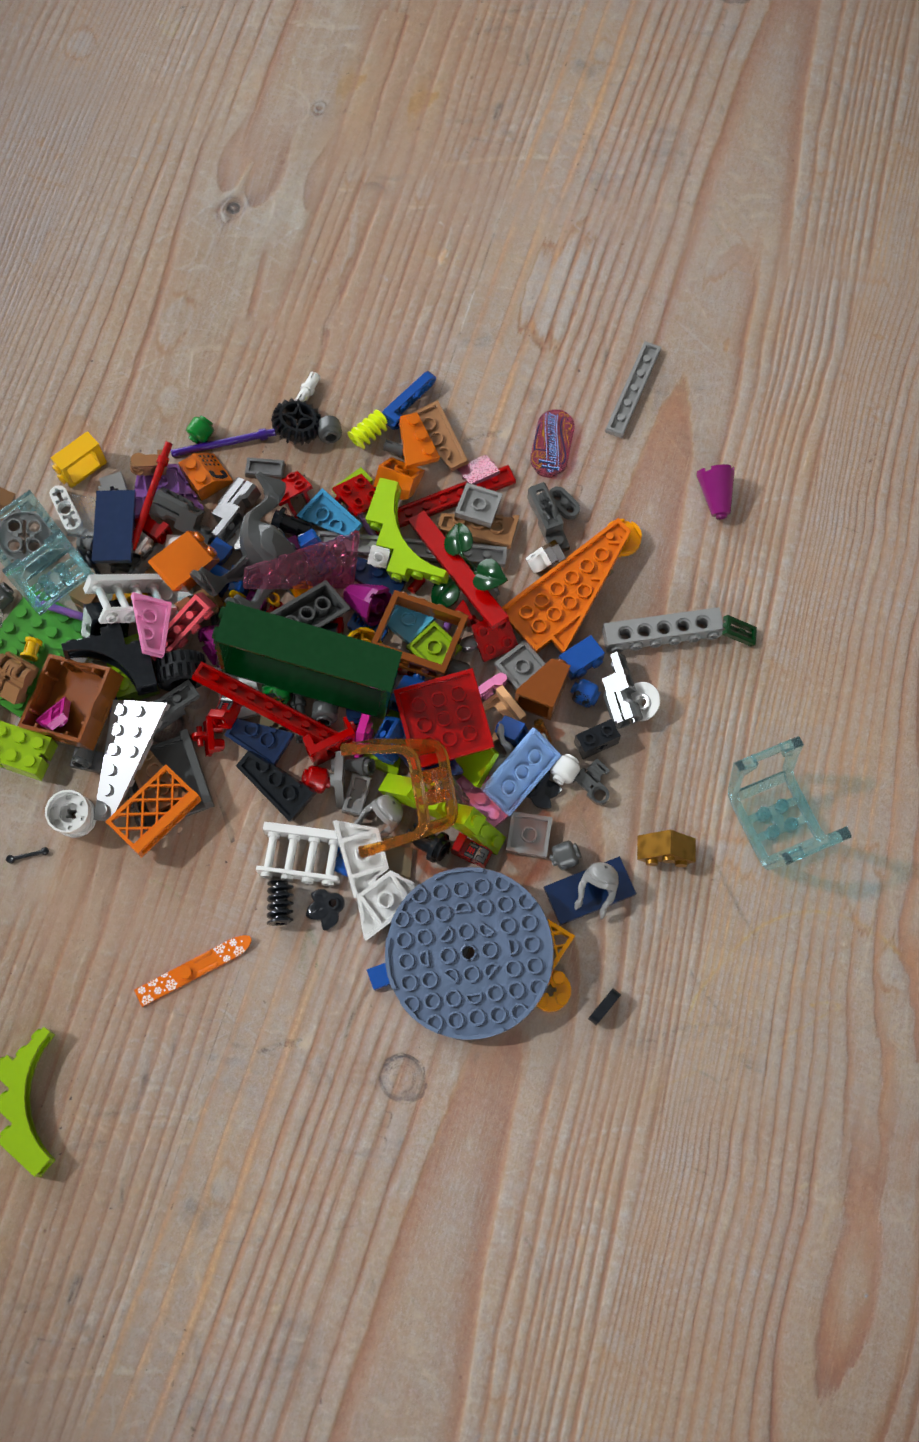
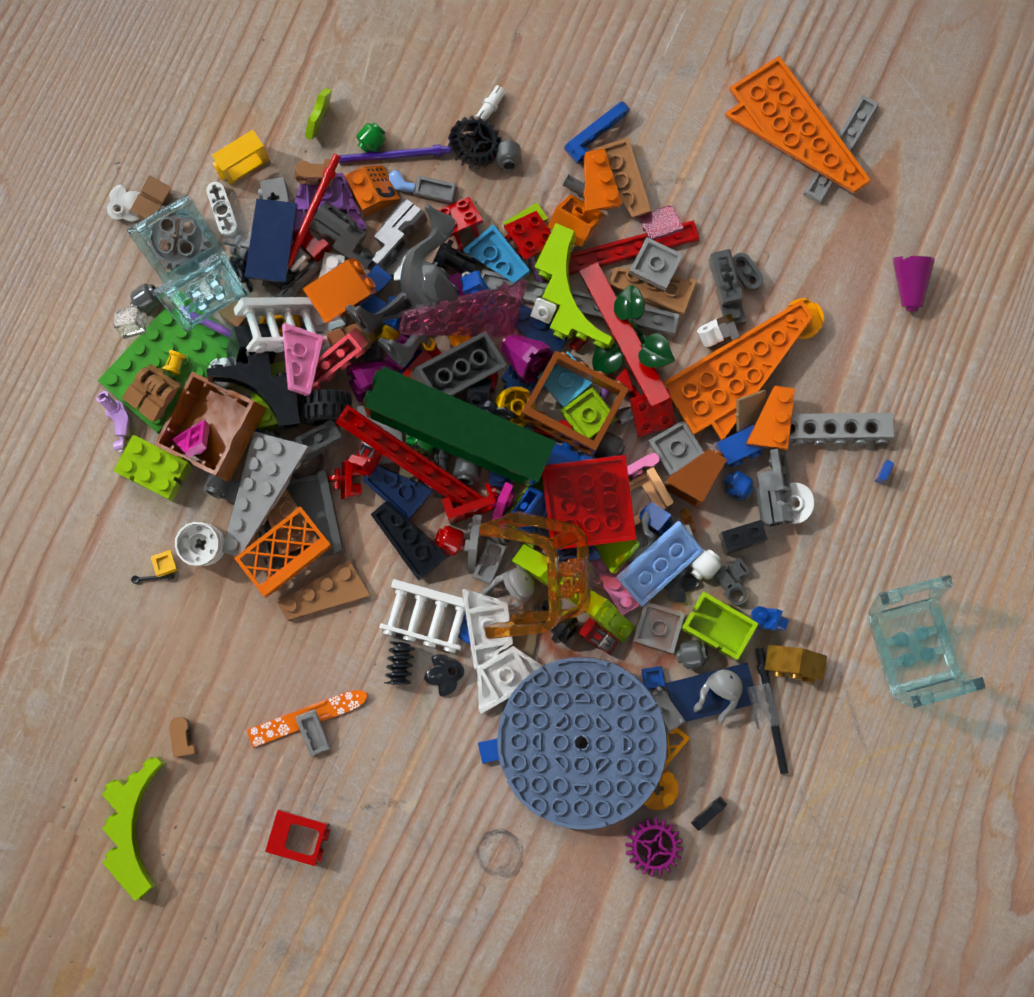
camera: 10 degrees right, 10 degrees up
(37, 839) = (164, 563): none -> yellow plate
(67, 1006) = (180, 737): none -> medium nougat leg
(147, 416) = (320, 108): none -> lime tile
(177, 1083) = (279, 834): none -> red window
(201, 982) = (313, 732): none -> light grey plate
(203, 843) = (330, 590): none -> medium nougat wing
(230, 466) = (399, 184): none -> light blue arm
(368, 429) = (550, 160): neon yellow piece -> none
(531, 882) = (653, 677): none -> blue tile
(552, 443) = (744, 200): clear pink tile -> none
(553, 915) = (670, 714): none -> light grey hinge
(565, 1050) = (649, 857): none -> magenta gear
(576, 365) = (786, 117): none -> orange wing
(586, 622) = (749, 409): none -> dark tan piece
(586, 824) = (719, 626): none -> lime piece
(610, 627) = (774, 422): none -> orange wing
(634, 810) = (769, 618): none -> blue hips
(637, 864) = (775, 729): none -> black bar
(641, 894) = (763, 706): none -> clear plate
(720, 665) = (884, 471): none -> blue tile
(739, 634) = (898, 436): dark green tile -> none

